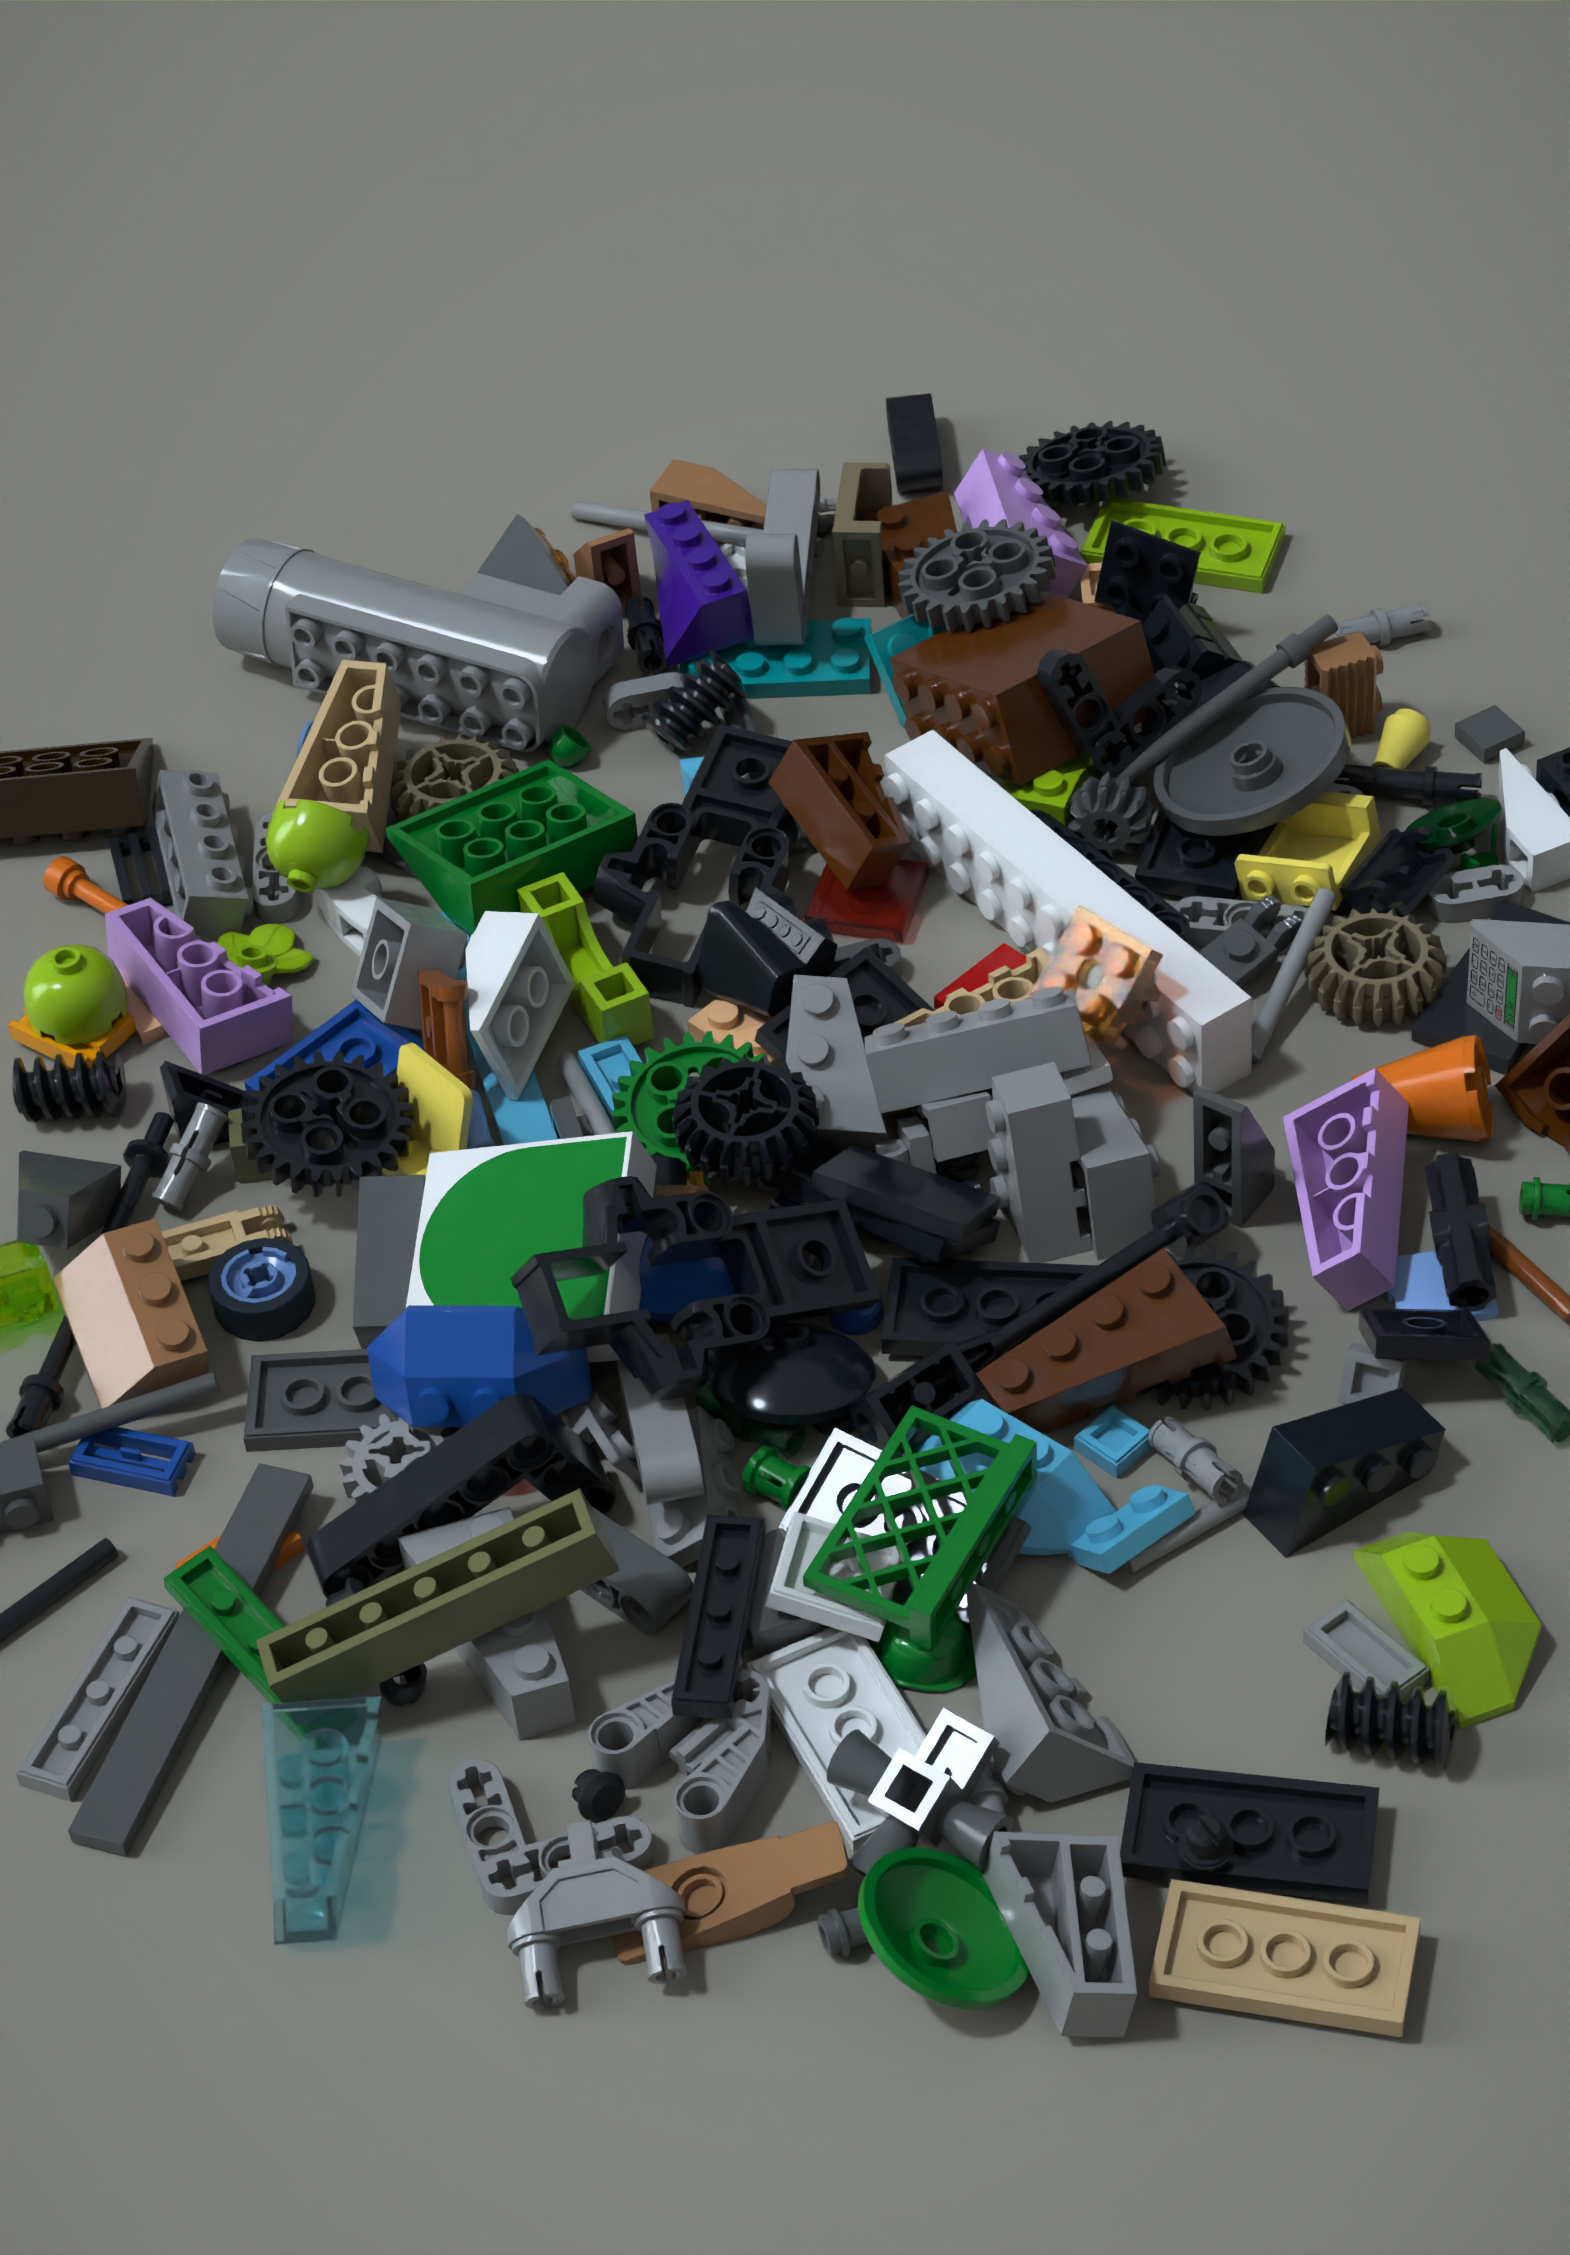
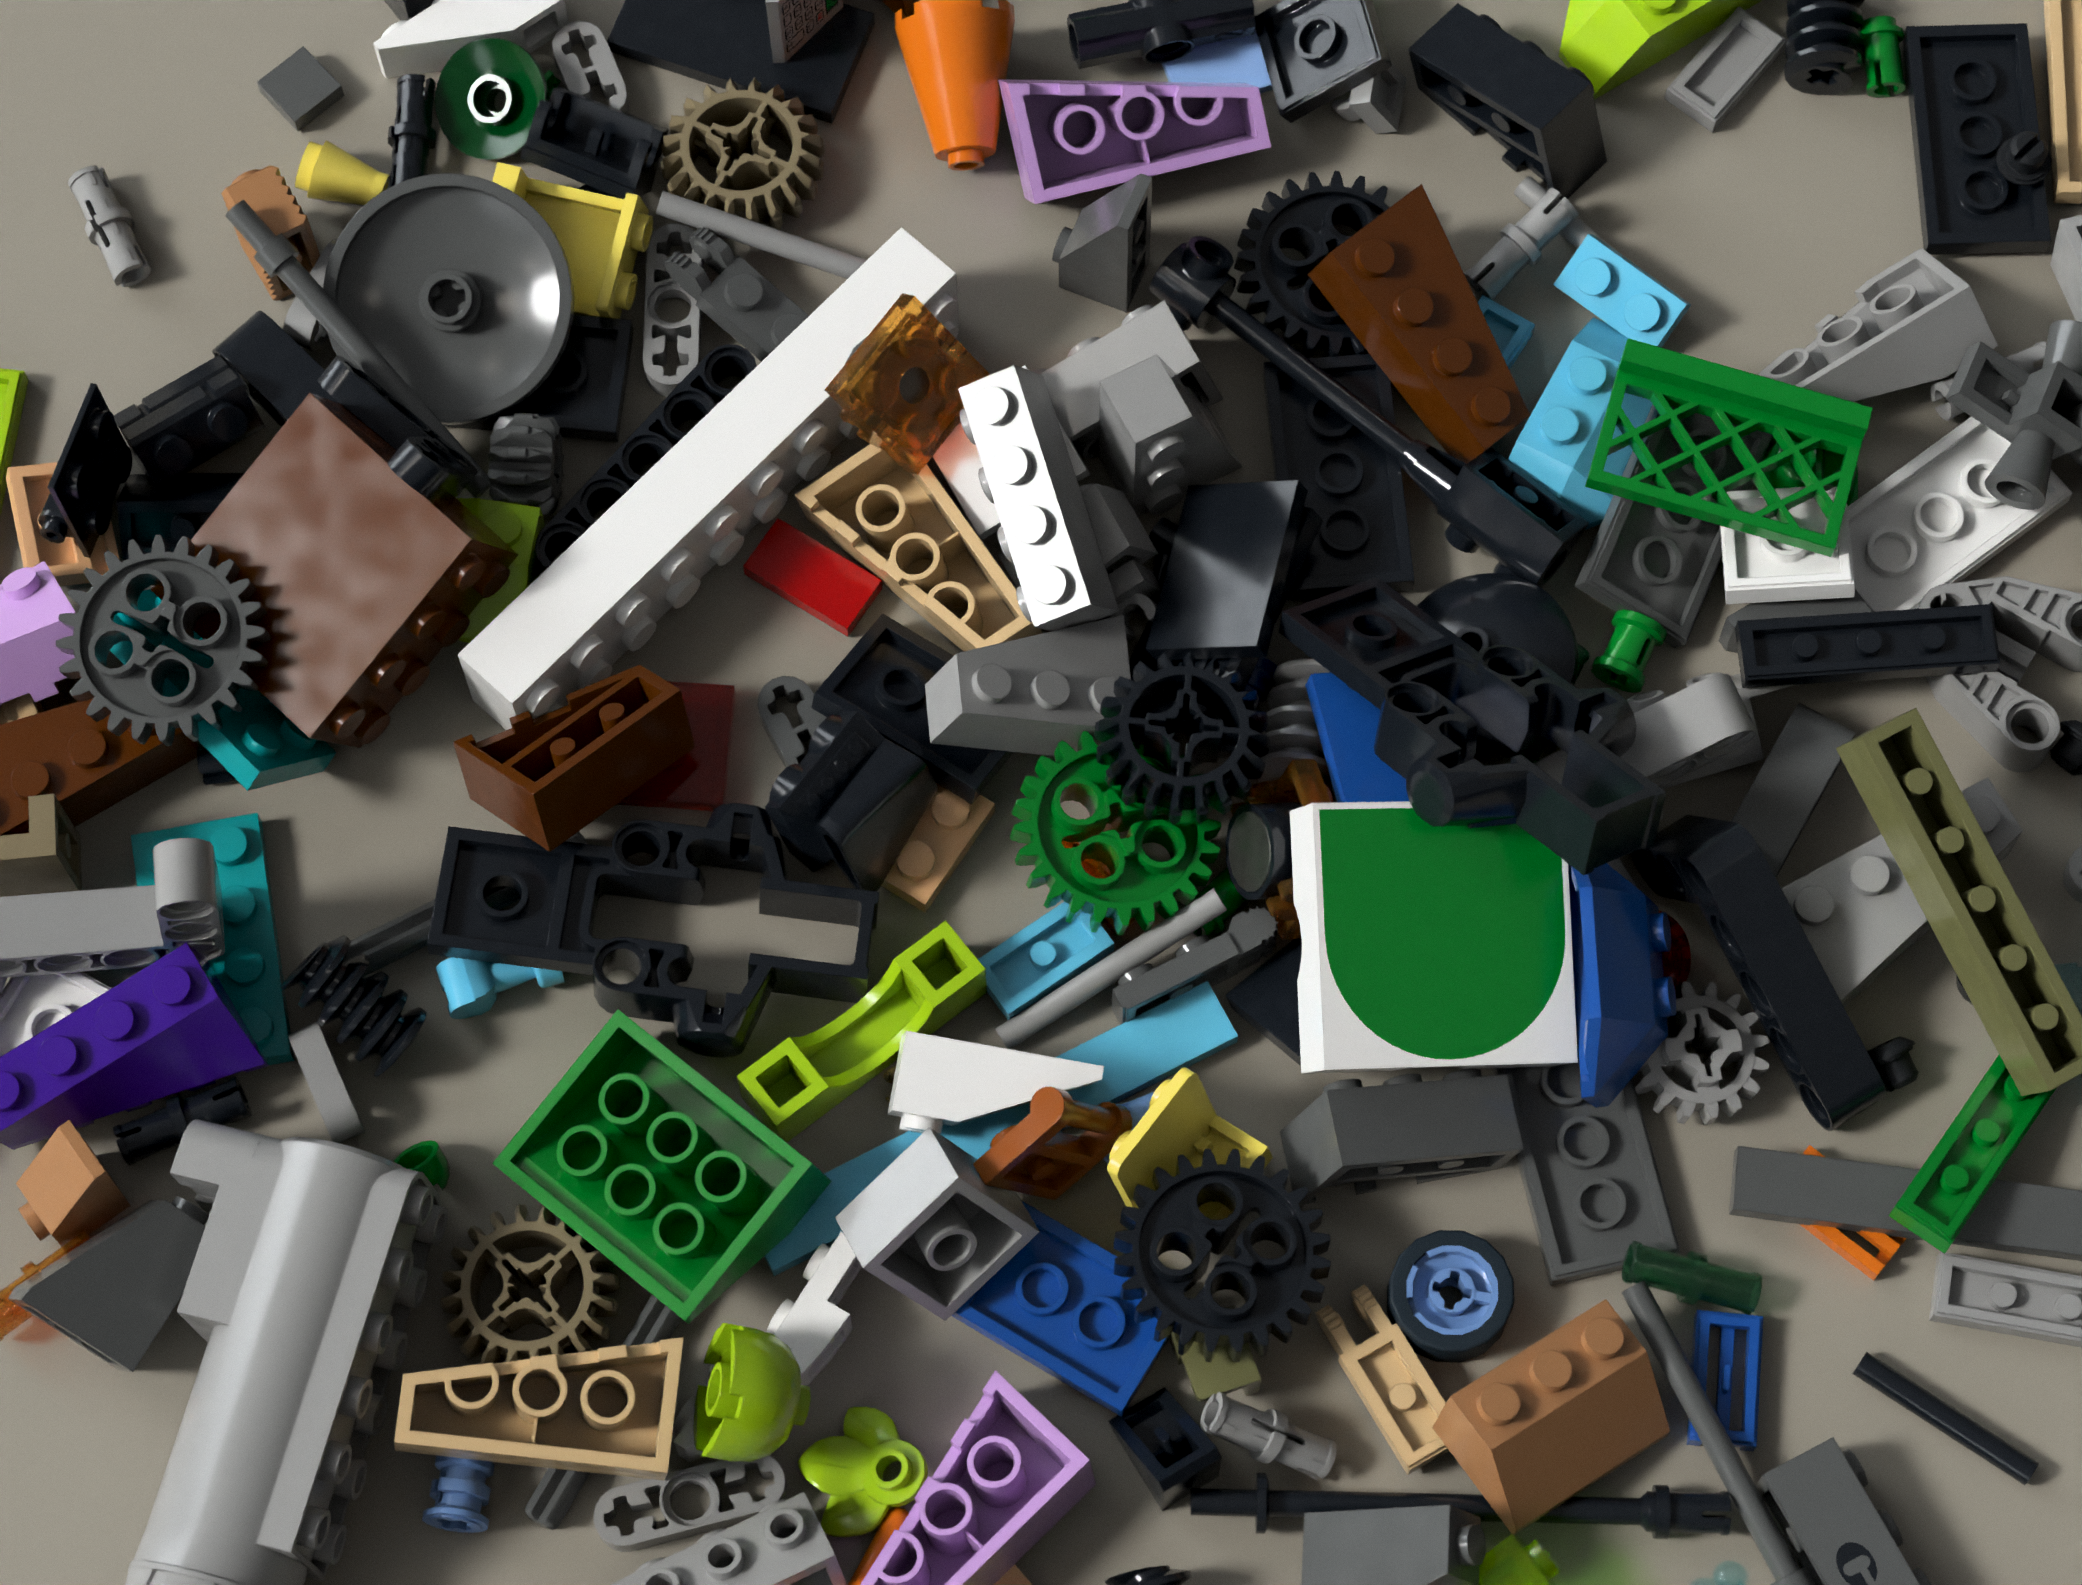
camera: 105 degrees left, 25 degrees up
(216, 1436) = (1692, 1277): none -> clear green pin
(1357, 1770) = (1882, 56): none -> green pin

